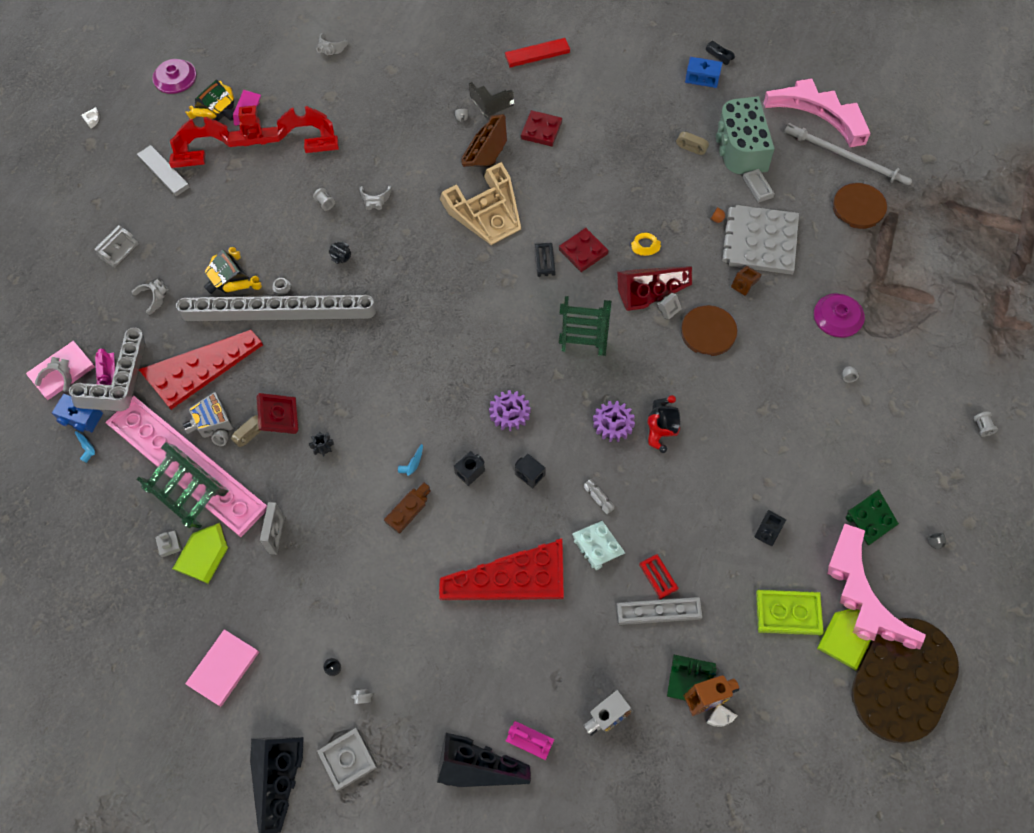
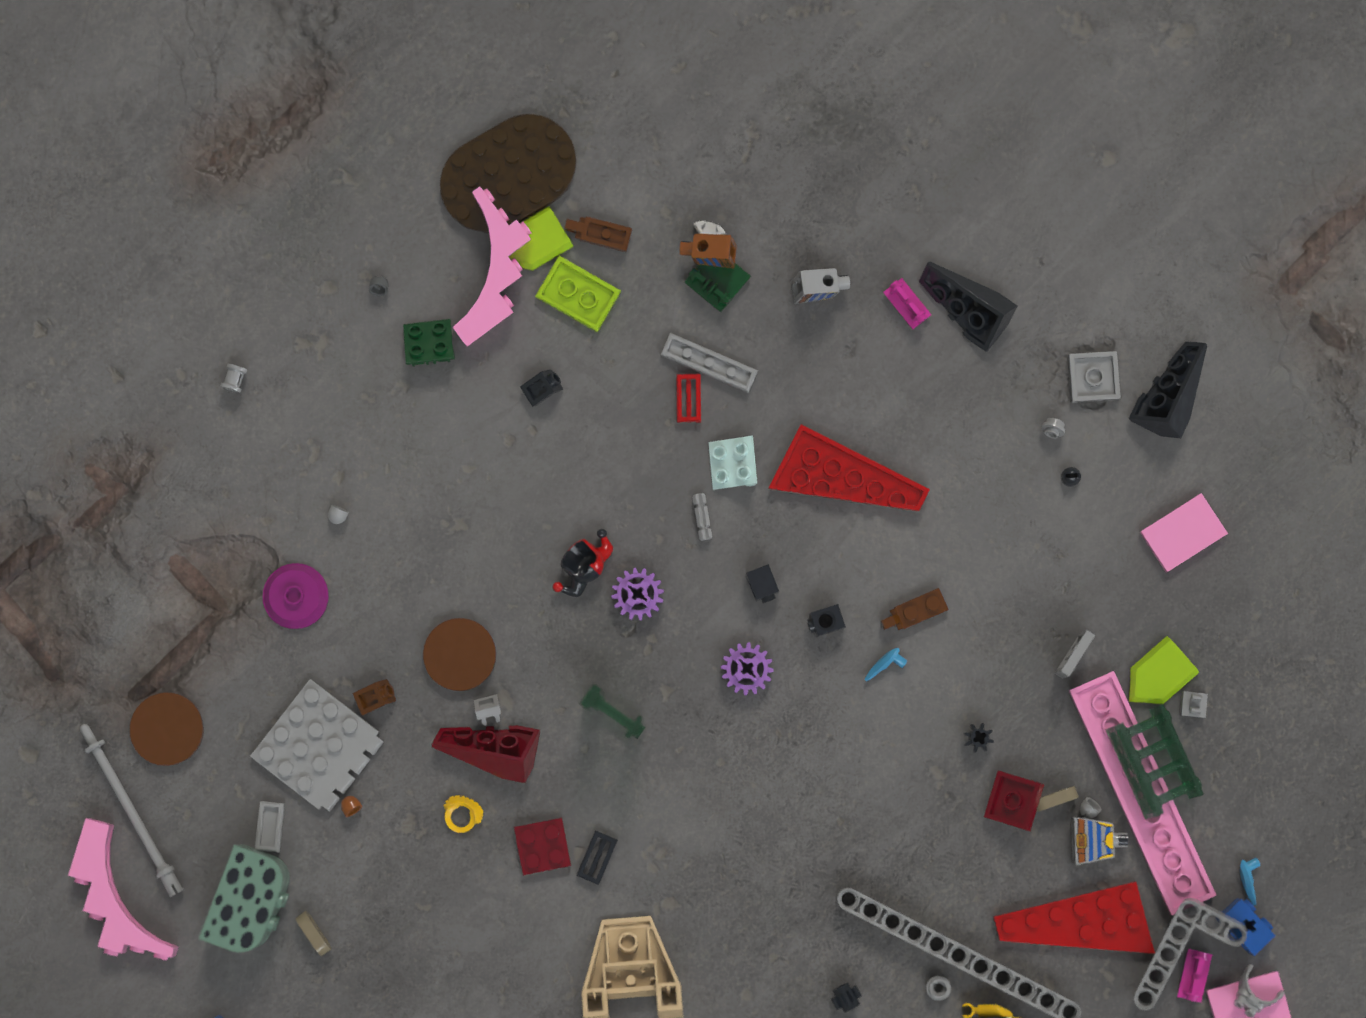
camera: 155 degrees left, 20 degrees up
(803, 667) = (600, 233): none -> reddish brown hinge

